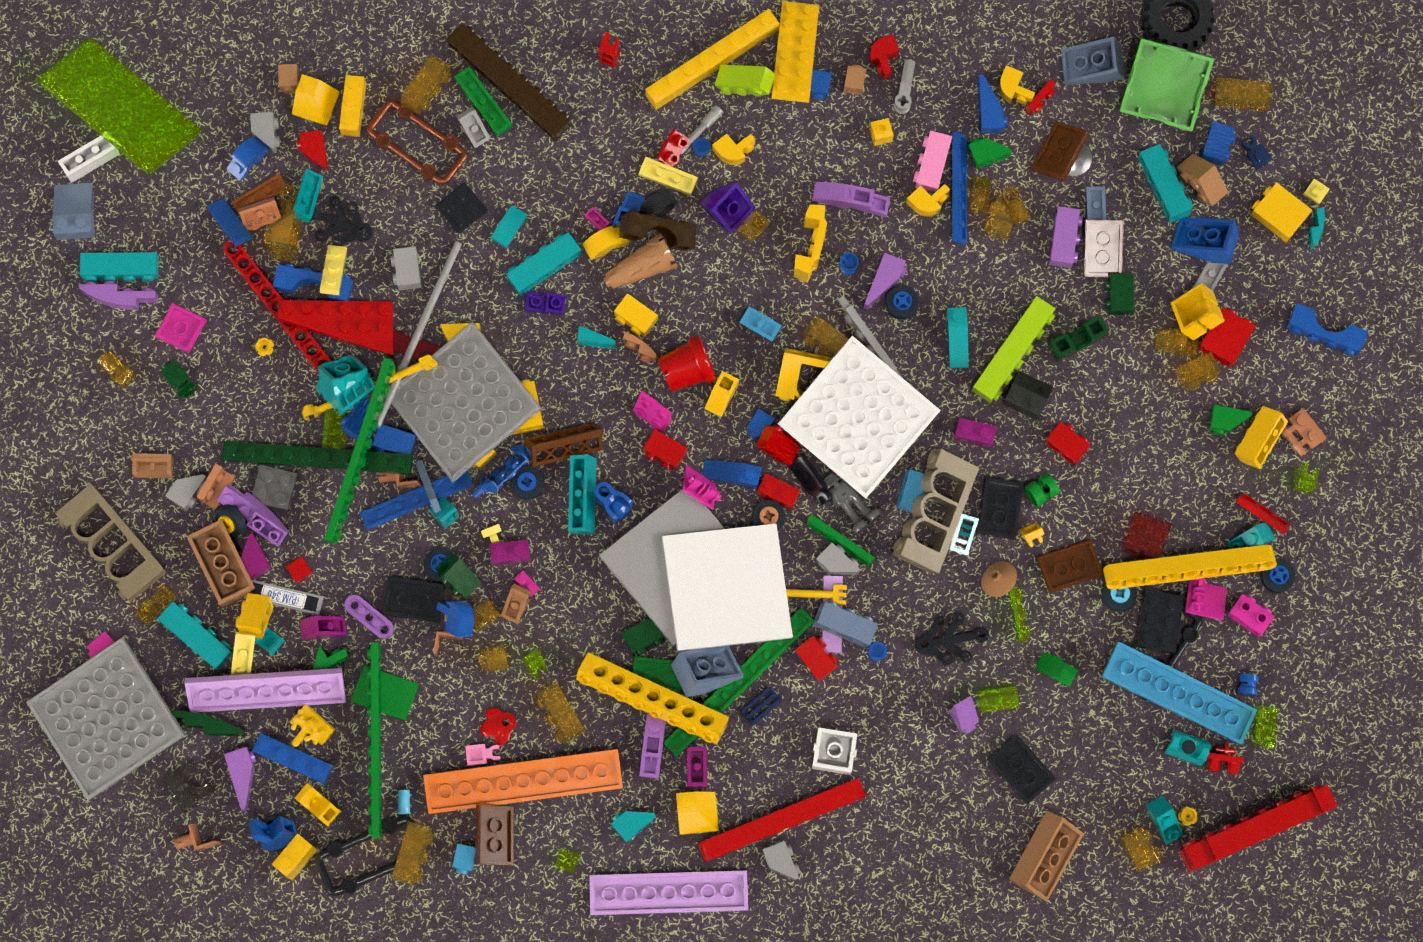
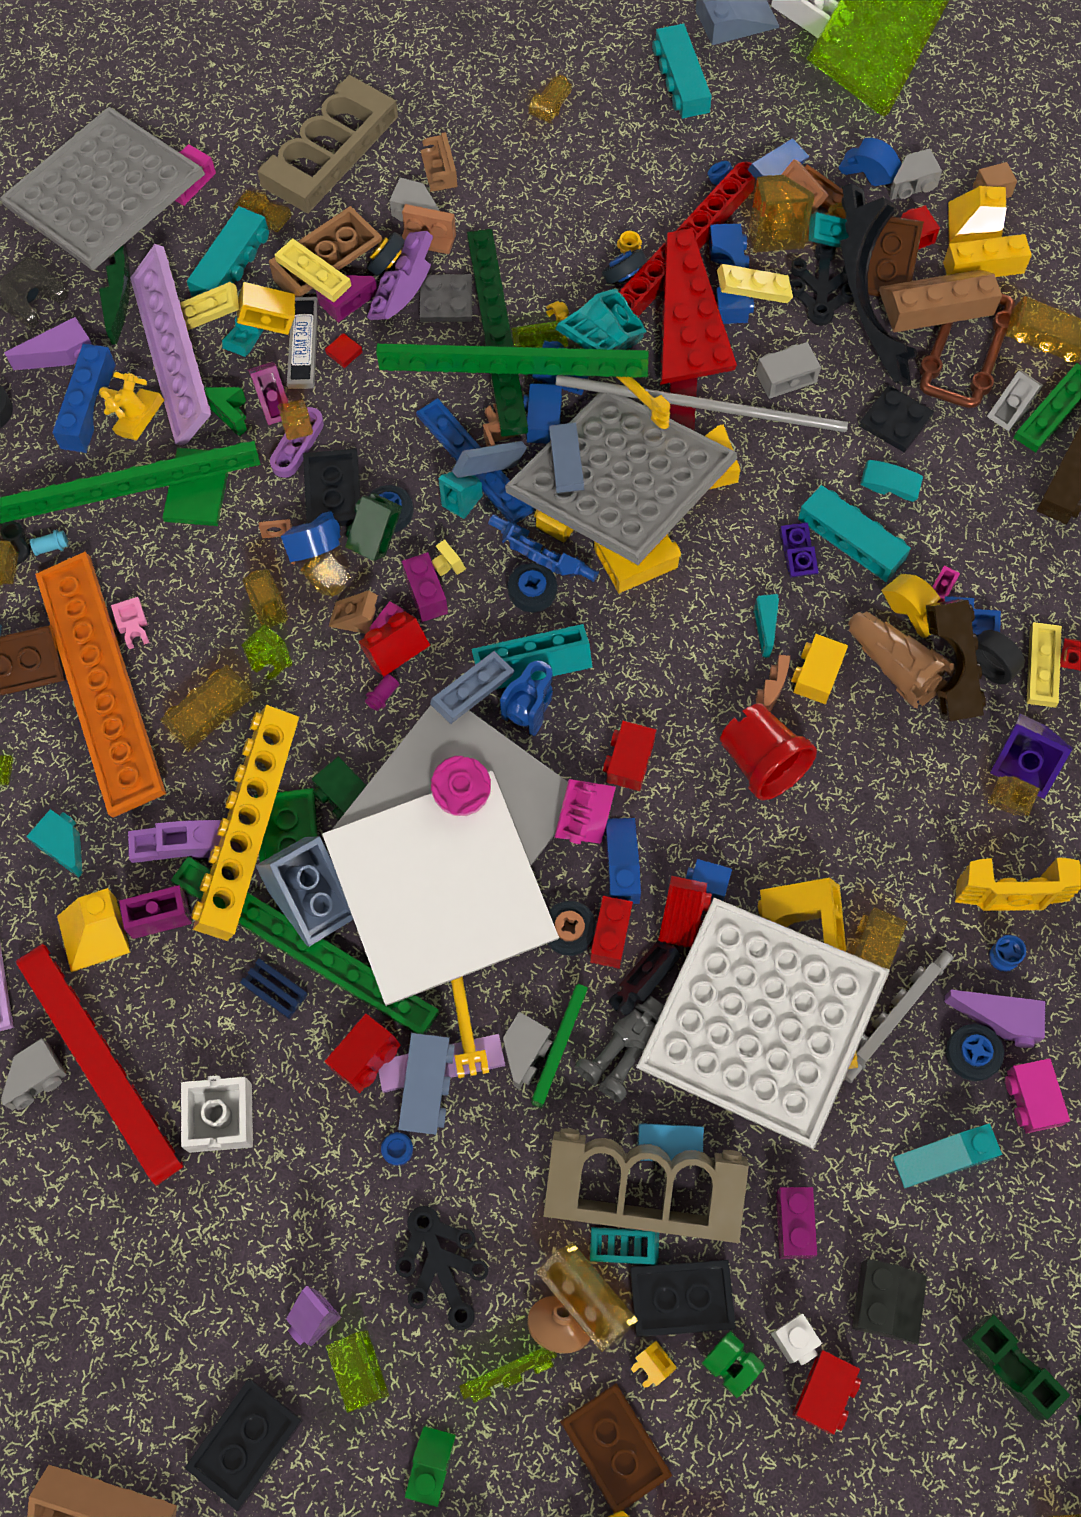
camera: 80 degrees right, 10 degrees down
(110, 295) = (644, 79): medium lavender slope -> none
(178, 379) = (552, 137): dark green arch -> none
(180, 328) = (625, 153): dark pink tile -> none
(221, 265) = (719, 171): none -> blue tile
(242, 573) = (313, 270): none -> light yellow plate
(289, 355) = (624, 266): none -> black wheel
(316, 183) = (863, 228): none -> black slope
(317, 804) = (29, 440): yellow brick -> none
(335, 171) = (894, 254): none -> reddish brown tile
(353, 612) = (295, 419): none -> clear yellow slope
(379, 149) = (941, 299): none -> medium nougat slope
(443, 434) = (566, 457): none -> sand blue tile
(495, 727) = (177, 634): red plate -> none
(548, 581) = (394, 643): none -> red brick
(564, 437) = (607, 610): reddish brown fence -> none
(577, 597) = (381, 693): none -> magenta pin
(603, 534) = (472, 687): none -> sand blue plate
(652, 412) = (684, 720): dark pink hinge -> none
(668, 557) = (460, 785): none -> dark pink tile
(722, 394) = (740, 813): yellow slope -> none
(761, 324) = (866, 844): dark azure hinge -> none
(936, 276) = (1036, 1096): none -> dark pink brick
(988, 559) = (587, 1296): none -> clear yellow brick
(1013, 349) = (960, 1257): lime brick -> none
(1037, 451) = (797, 1340): none -> white brick

